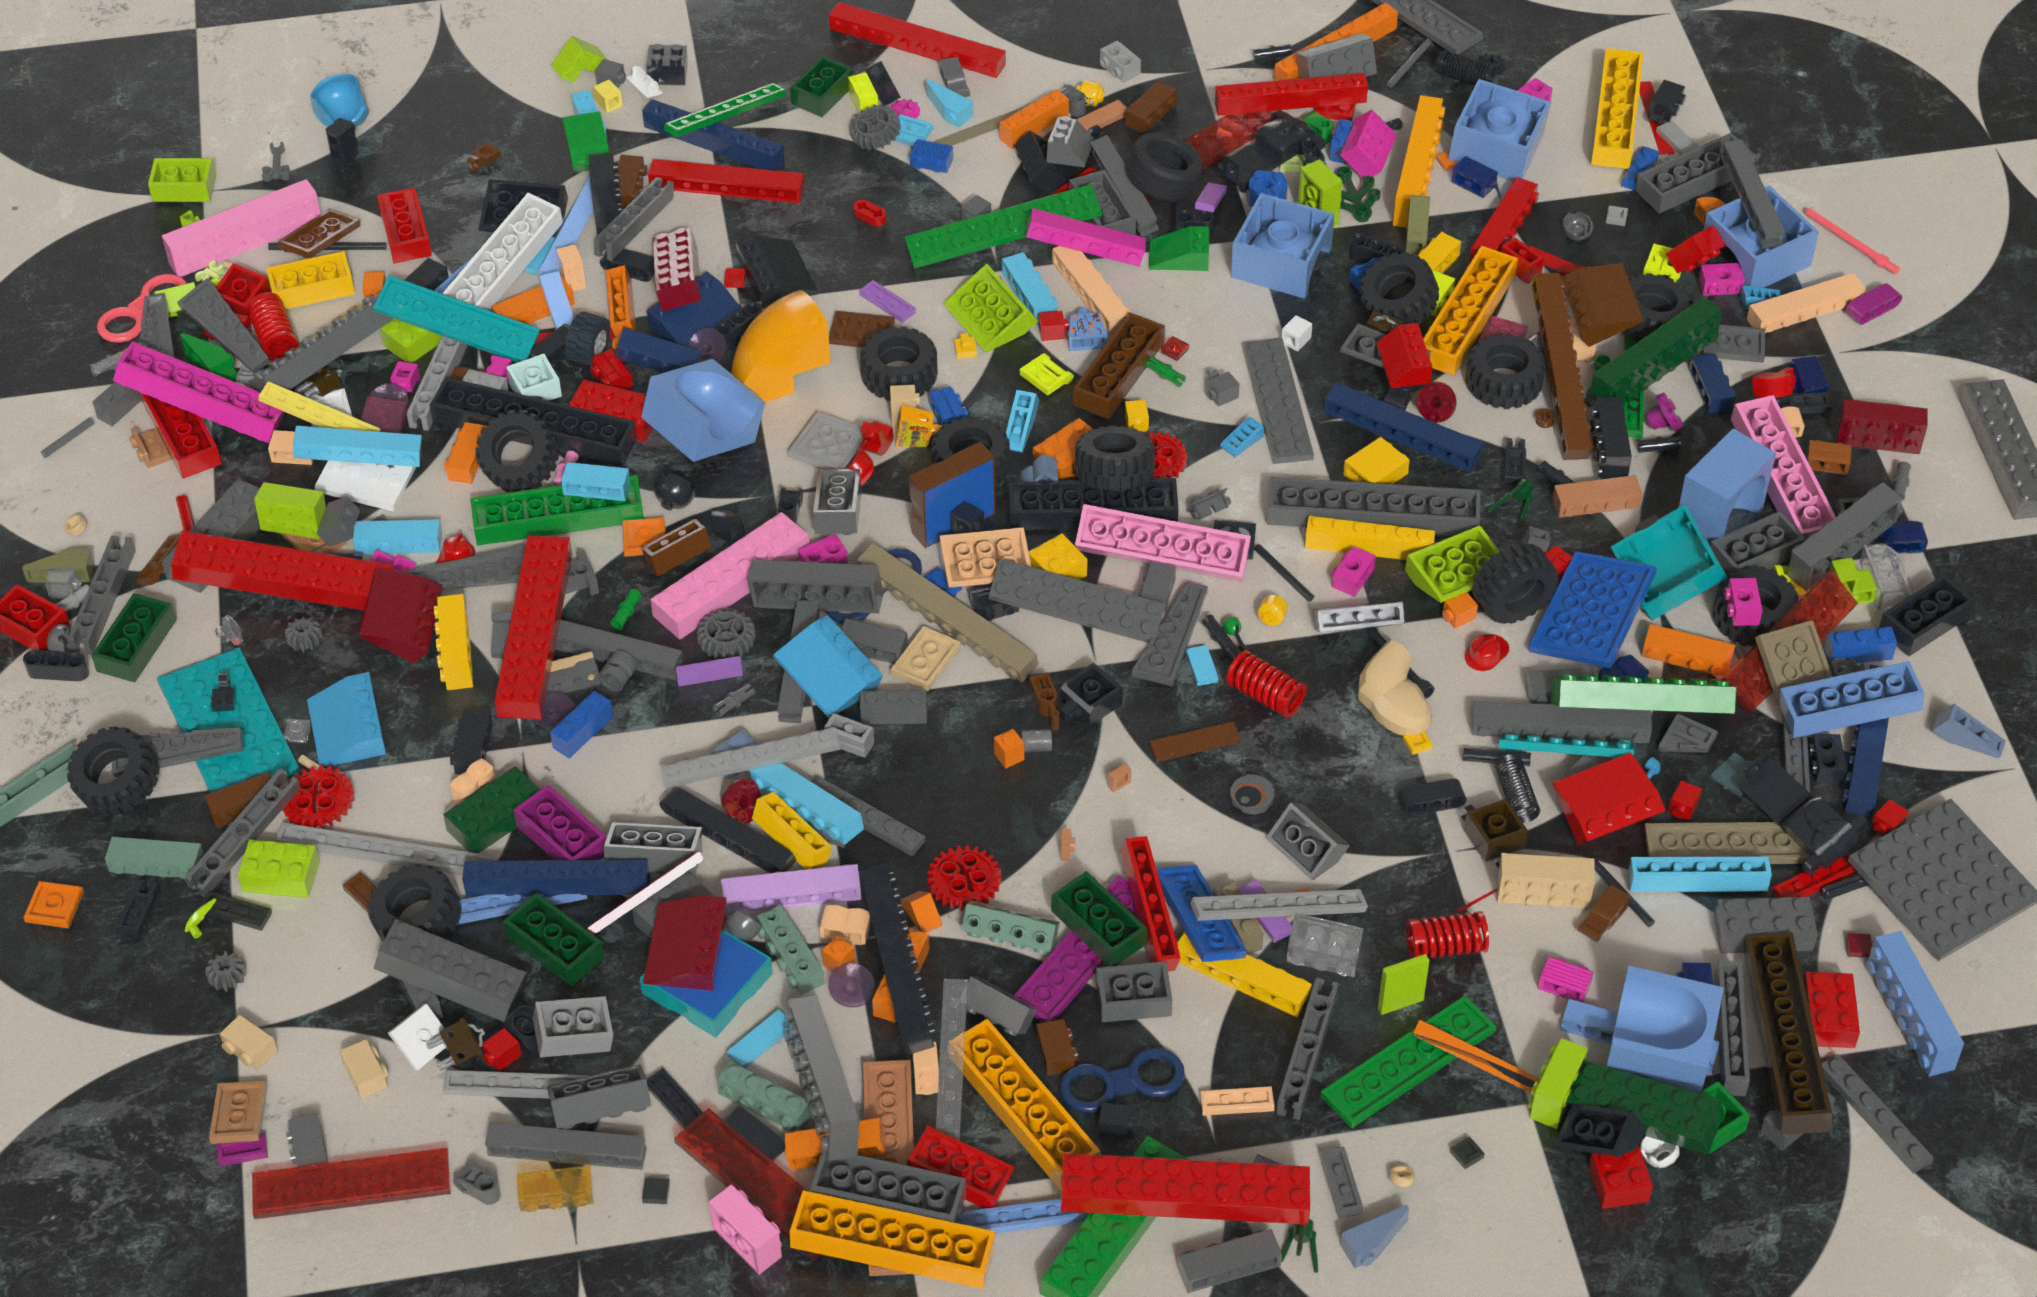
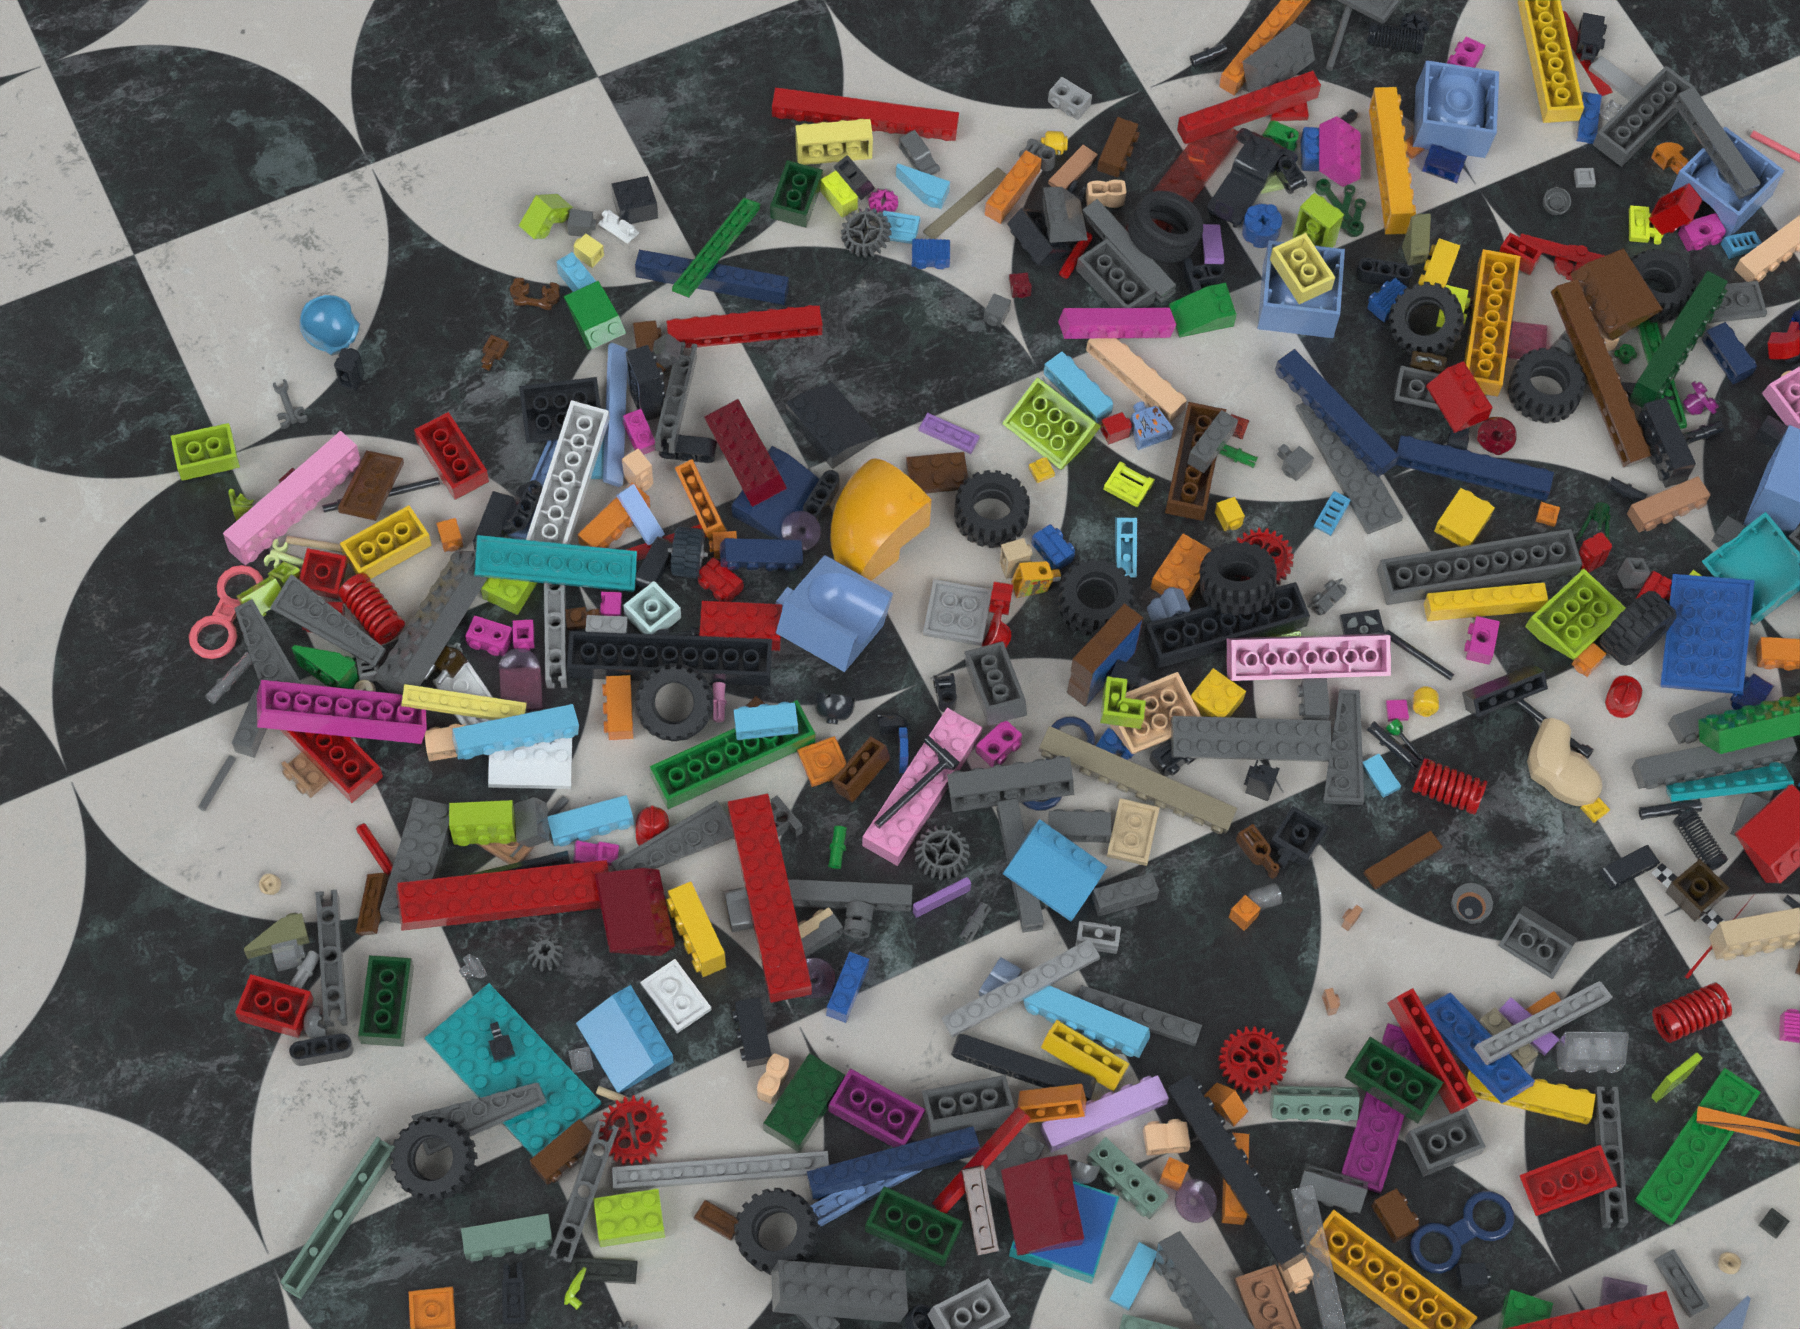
camera: 20 degrees left, 15 degrees up
(371, 370) = (489, 636): none -> dark pink brick
(412, 697) = (675, 996): none -> white plate
(453, 266) = (515, 511): none -> black beam
(532, 115) = (550, 295): none -> reddish brown helmet
(586, 234) = (639, 431): none -> dark pink brick
(625, 938) = (980, 1210): none -> tile
(640, 178) = (667, 350): none -> flat silver brick
(724, 536) = (903, 750): none -> blue tile
(735, 277) = (795, 441): red plate -> none
(738, 863) = (1053, 1103): none -> orange brick
(740, 800) = (1026, 1034): dark red plate -> none
(757, 550) = (946, 761): none -> black bar
(867, 47) = (834, 141): none -> light yellow brick
(869, 212) = (894, 333): red beam -> none
(947, 538) = (1118, 709): none -> lime brick
(997, 226) = (1028, 325): green plate -> none
(1007, 197) = (1020, 285): none -> dark red bracket
(1072, 638) = (1260, 780): none -> black hinge
(1122, 136) = (1108, 193): none -> light nougat brick
(1137, 344) = (1212, 441): none -> dark grey brick
(1237, 1100) = (1565, 1224): light nougat tile -> none
(1243, 612) = (1397, 709): none -> dark pink tile
(1251, 1053) = (1568, 1180): none -> red slope
(1277, 352) = (1336, 413): none -> dark blue brick
(1281, 216) = (1302, 268): none -> light yellow brick
(1297, 333) = (1343, 382): white brick -> none
(1467, 481) = (1547, 514): none -> orange tile
(1498, 517) = (1594, 552): none -> red brick
(1507, 216) = (1489, 208): red brick -> none
(1515, 462) = (1584, 482): black hinge -> none
(1545, 423) = (1599, 424): reddish brown bush -> none

